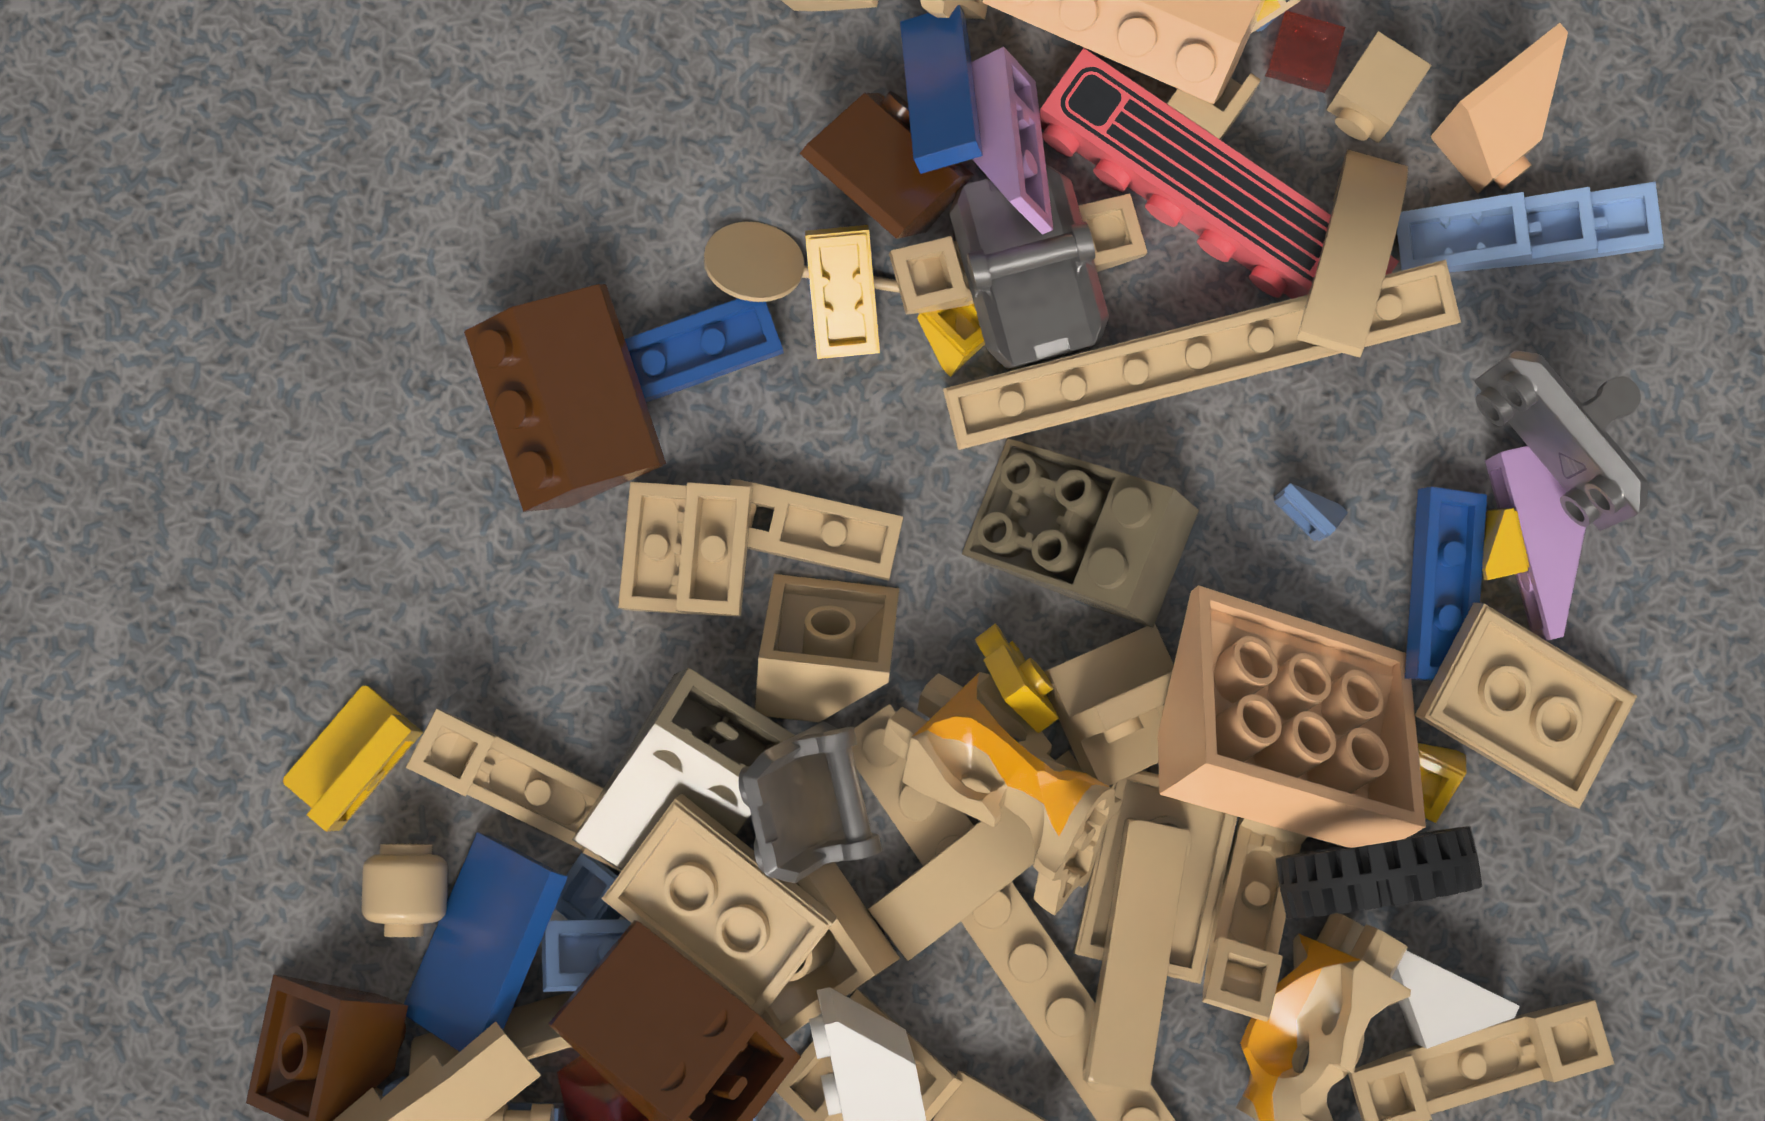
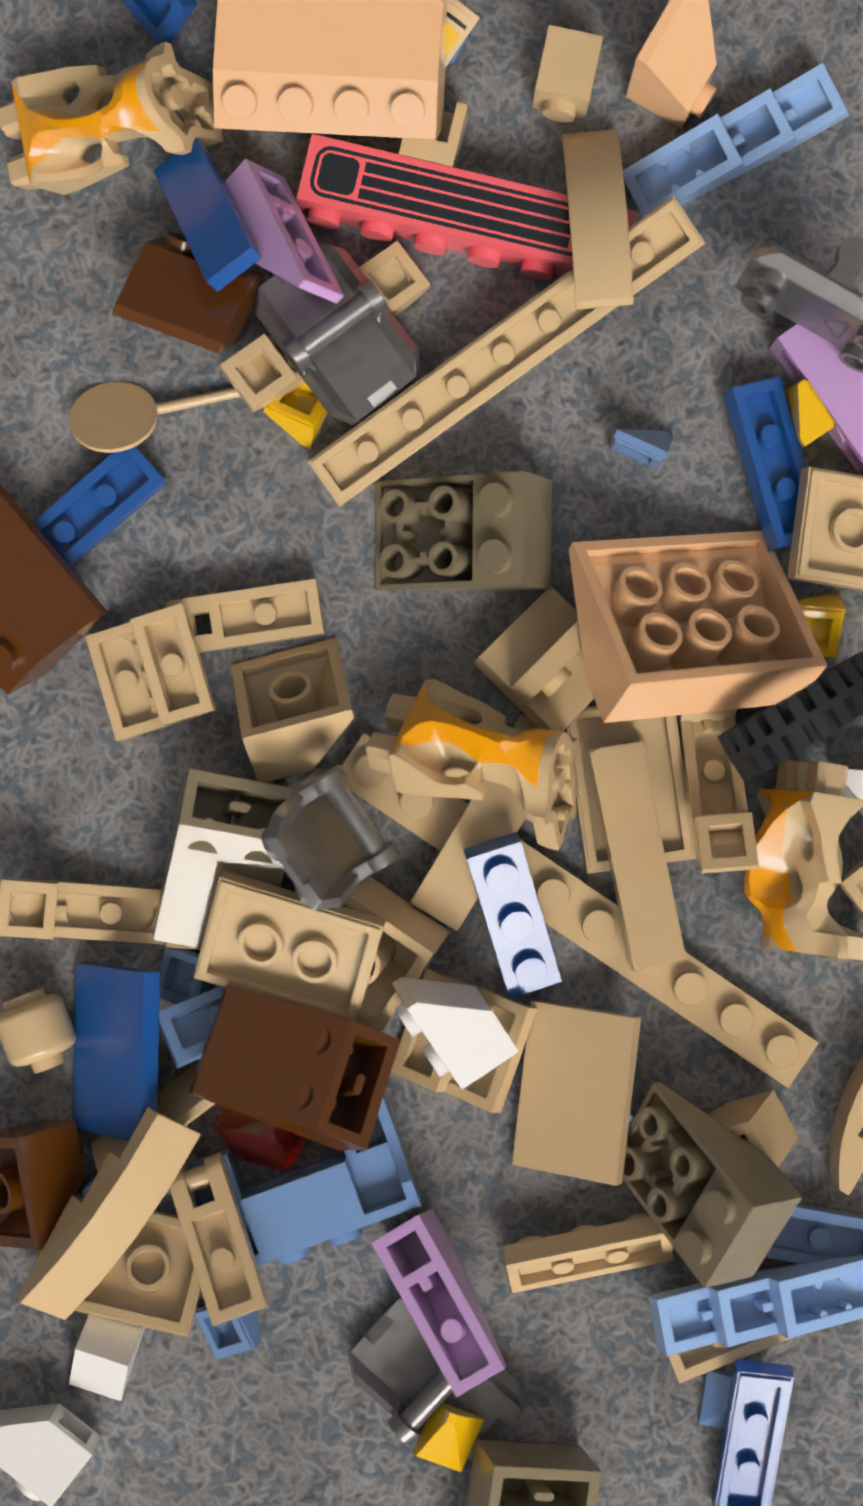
camera: 20 degrees left, 5 degrees up
(842, 291) = (194, 413): plate -> none
(976, 967) = (512, 914): none -> plate
(1019, 681) = (457, 674): yellow plate -> none
(1305, 51) = (496, 65): clear red plate -> none

